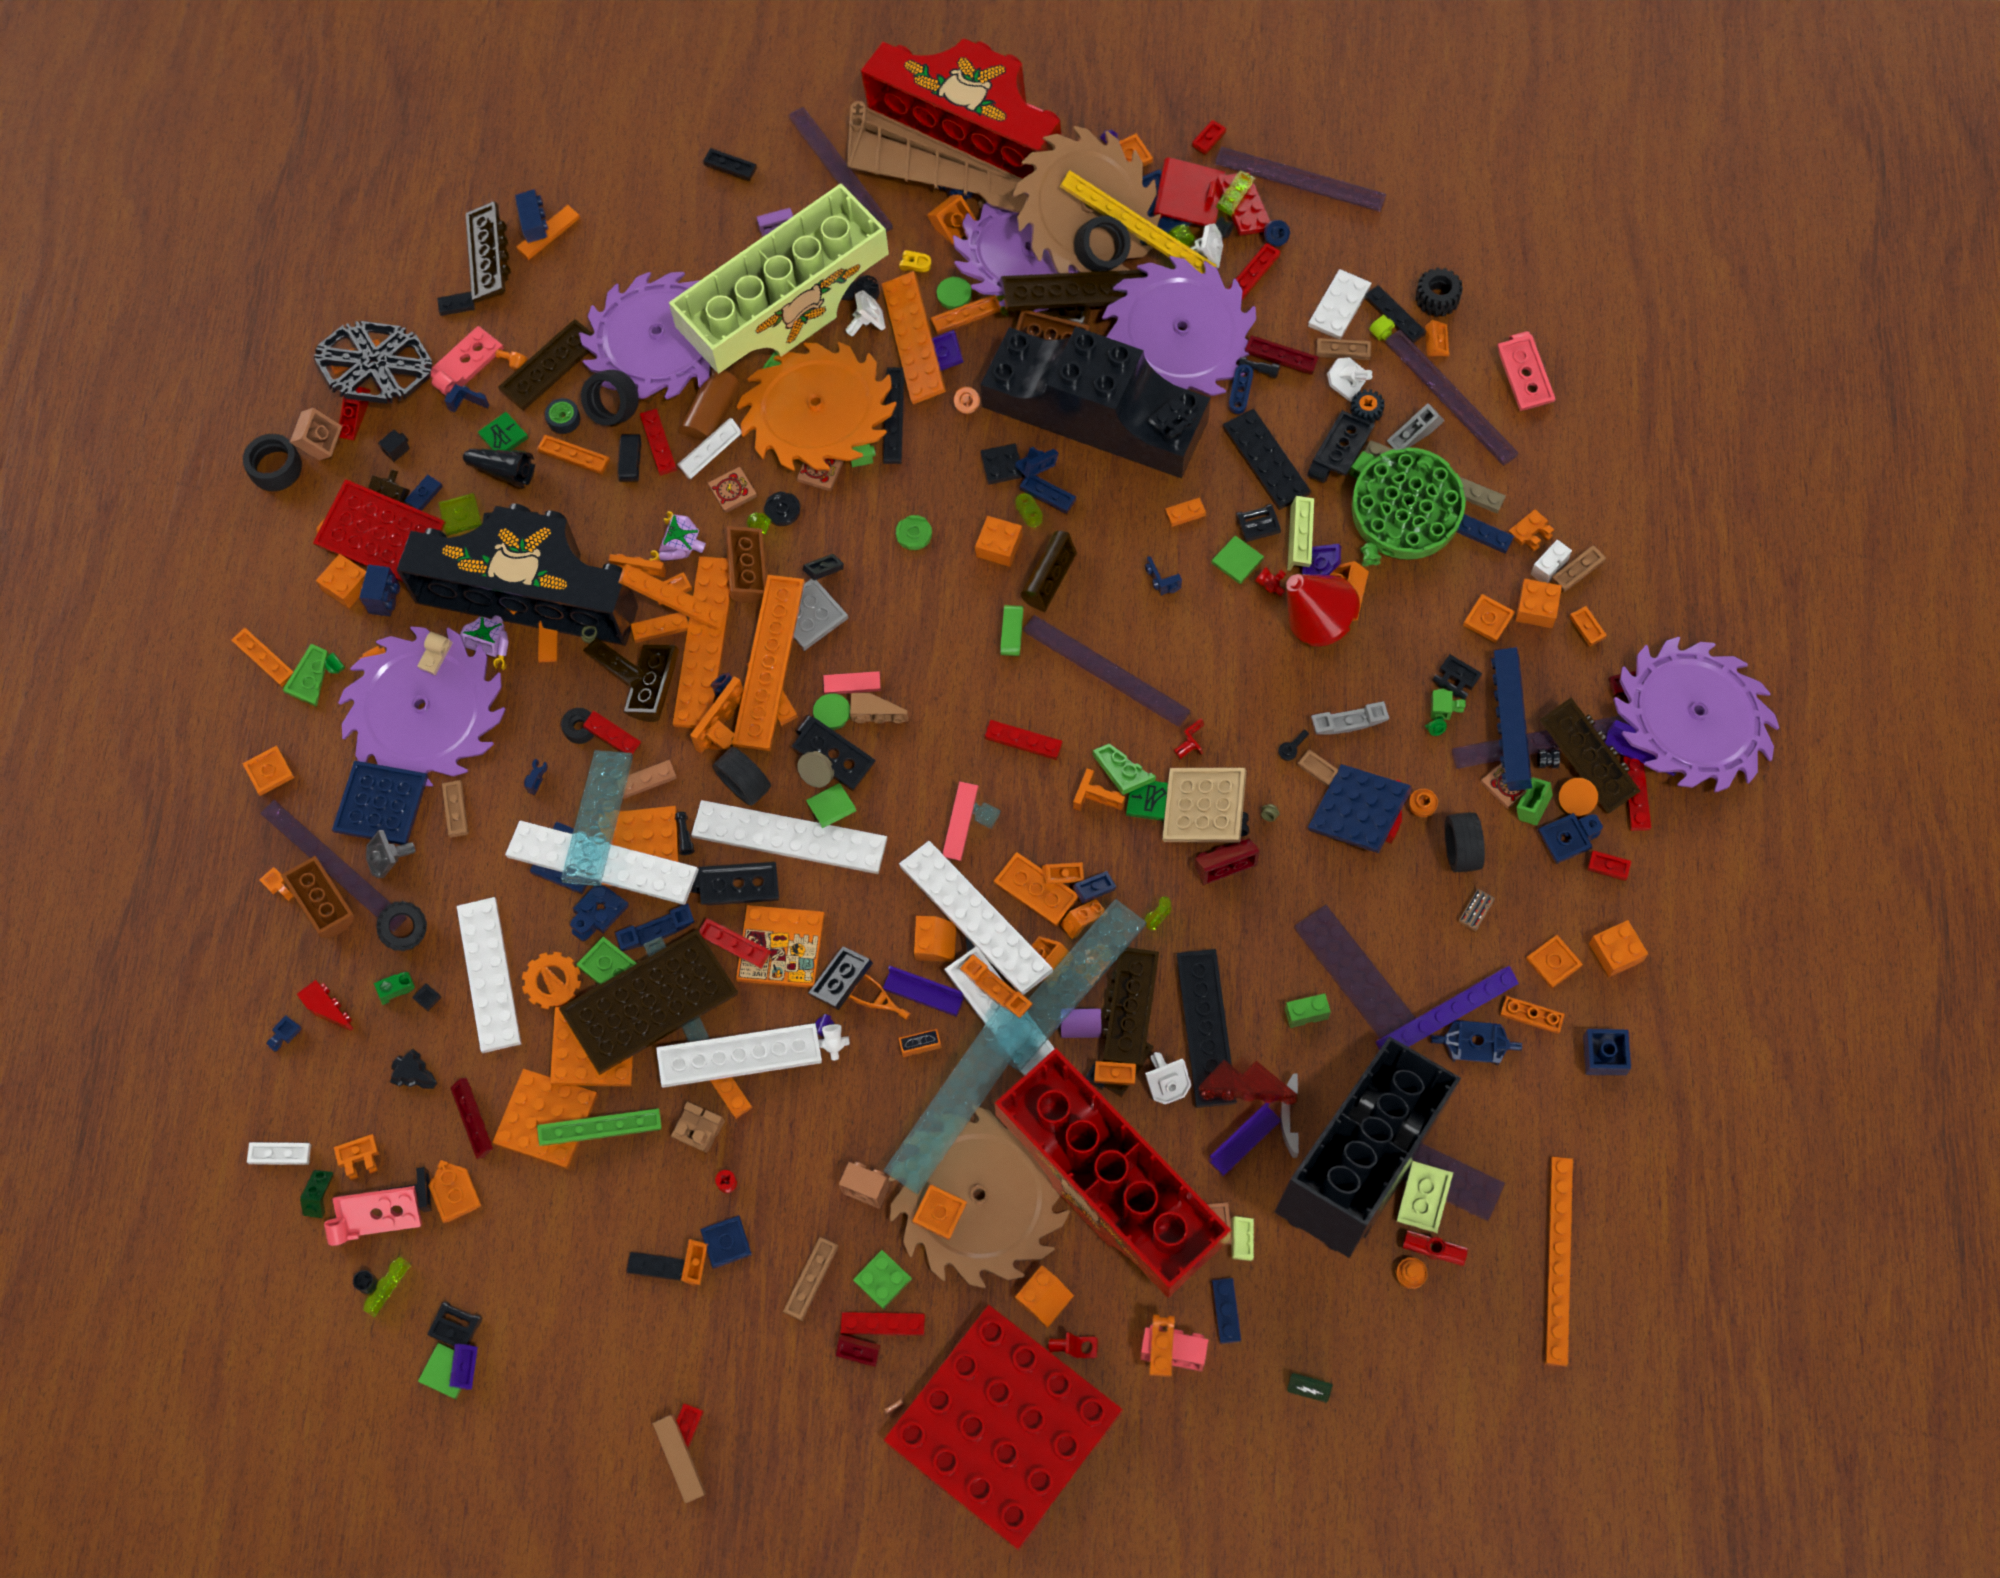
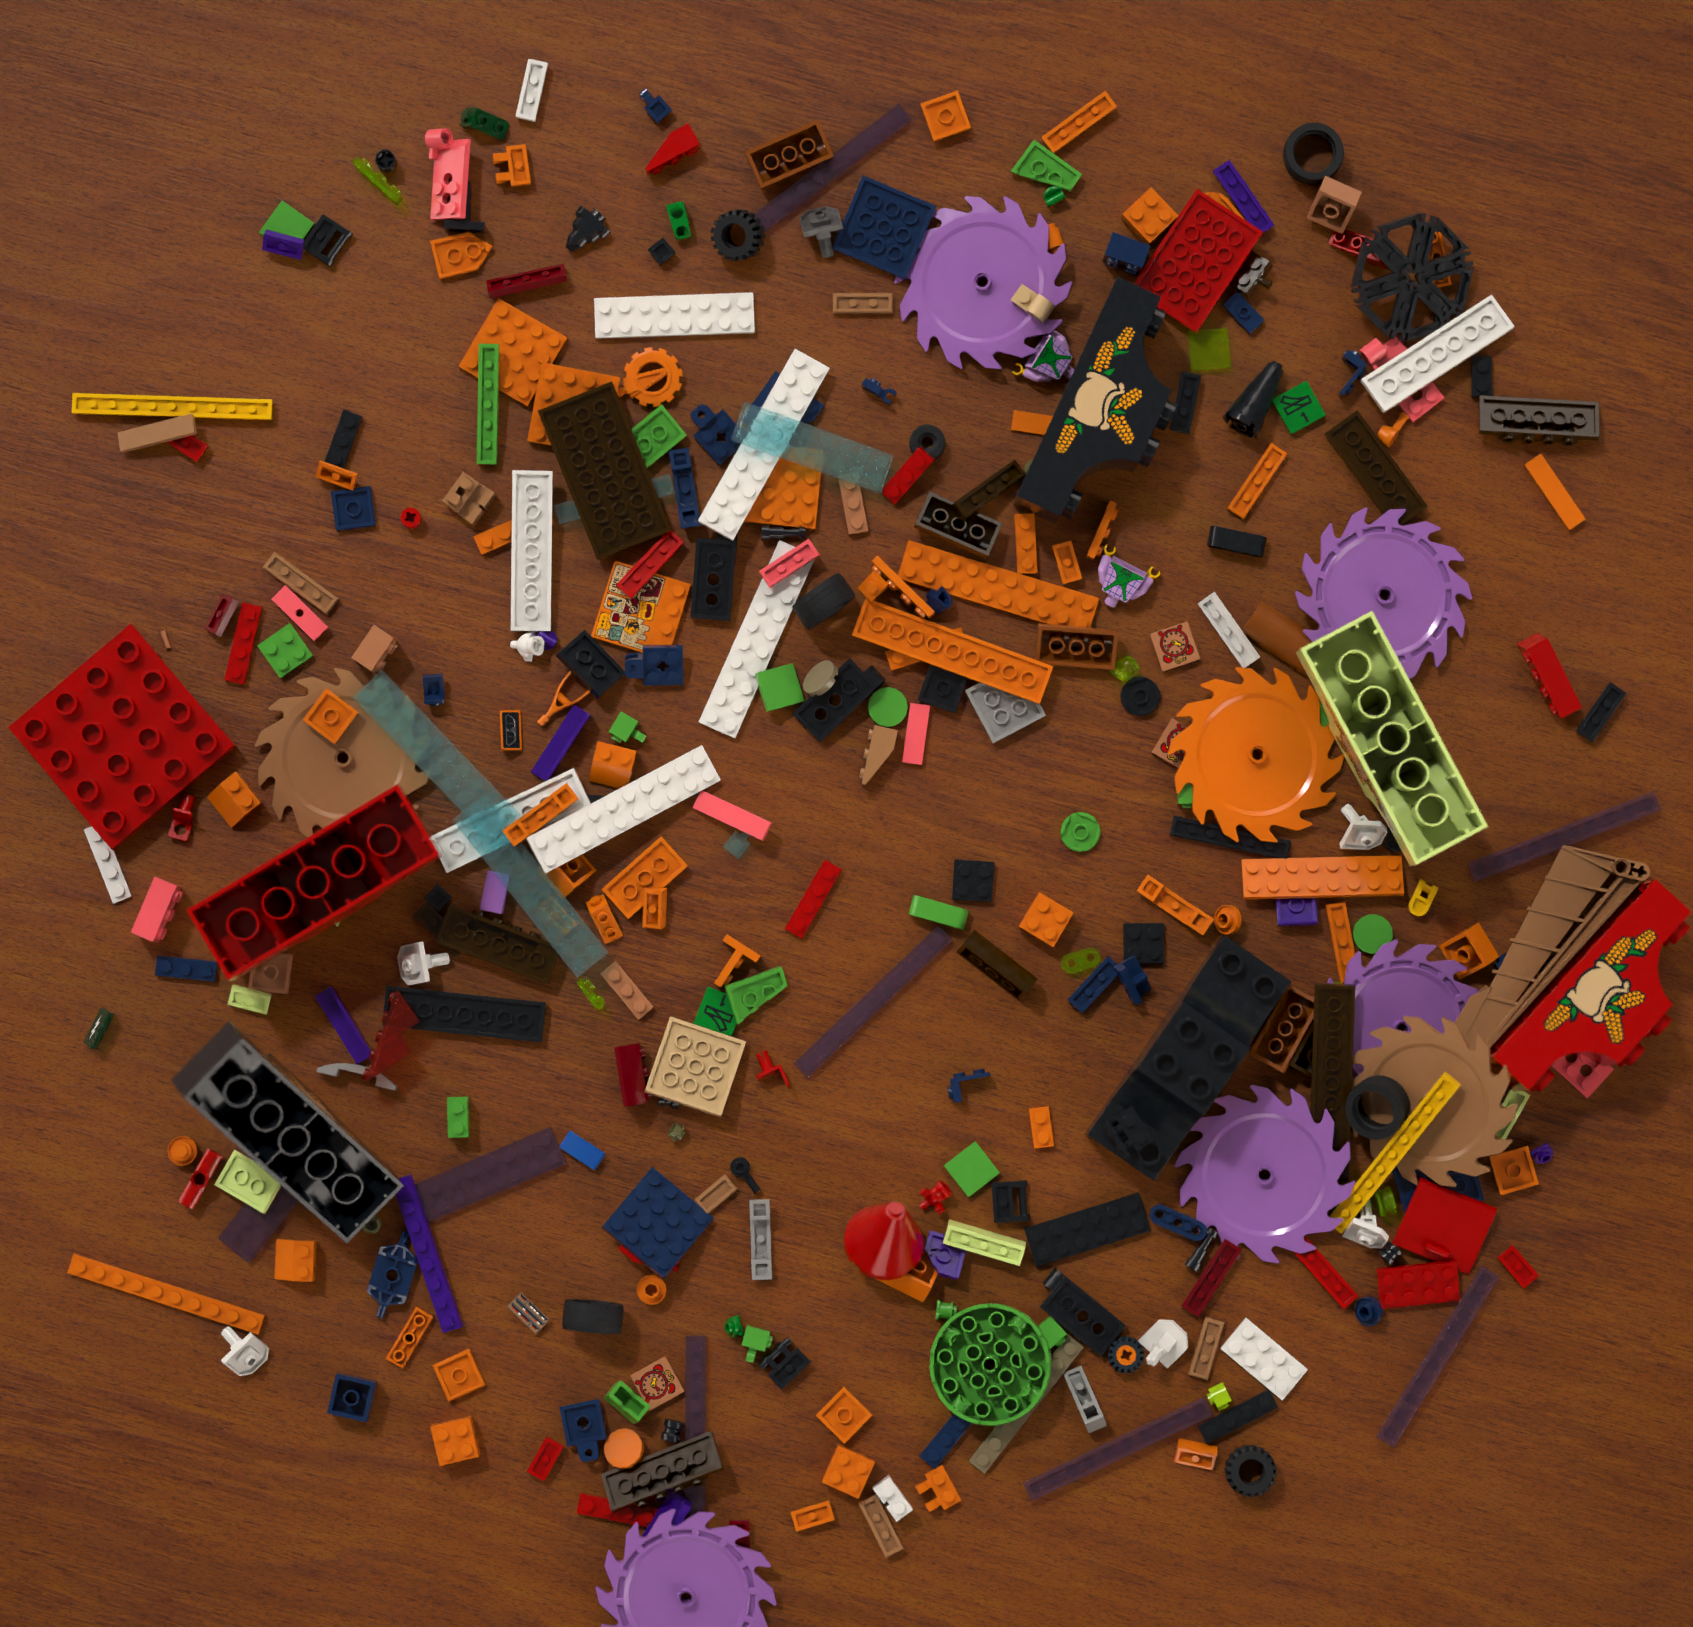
camera: 90 degrees right, 20 degrees up
(274, 882) = (818, 111): orange plate -> none
(313, 515) = (1242, 196): none -> dark purple plate
(394, 445) = (1308, 288): black brick -> none
(440, 334) = (1437, 353): none -> white plate
(532, 215) = (1575, 476): dark blue brick -> none
(555, 412) = (1313, 468): wheel -> none
(592, 402) = (1298, 516): black tyre -> none
(649, 1452) = (172, 406): none -> yellow plate
(658, 442) = (1252, 575): red plate -> none
(671, 596) = (1036, 560): orange plate -> none
(703, 204) = (1549, 675): none -> red wedge
(711, 819) = (789, 563): none -> coral tile
(771, 221) = (1512, 750): medium lavender brick -> none
(806, 668) = (942, 689): none -> black plate
(823, 567) = (1054, 727): black plate -> none
(832, 927) = (647, 663): none -> dark blue plate
(847, 1260) = (291, 604): none -> coral tile
(893, 1122) = (433, 689): none -> dark blue bracket
(897, 935) = (624, 728): none -> bright green brick
(964, 442) = (1175, 905): none -> orange slope
(976, 610) = (973, 880): none -> black plate
(1094, 887) = (633, 936): dark blue plate -> none
(1115, 1073) = (433, 913): orange plate -> none
(1139, 1415) = (108, 866): none -> white plate
(1147, 884) = (627, 990): none -> nougat plate
(1162, 1346) = (154, 896): orange plate -> none
(1235, 192) = (1424, 1275): clear neon green plate -> none
(1309, 892) = (582, 1150): none -> blue slope
(1489, 1137) = (295, 1260): none -> orange slope
(1512, 718) = (719, 1404): dark blue brick -> none
(1522, 354) = (1148, 1534): coral hinge -> none
(1596, 1164) = (245, 1353): none -> white piece

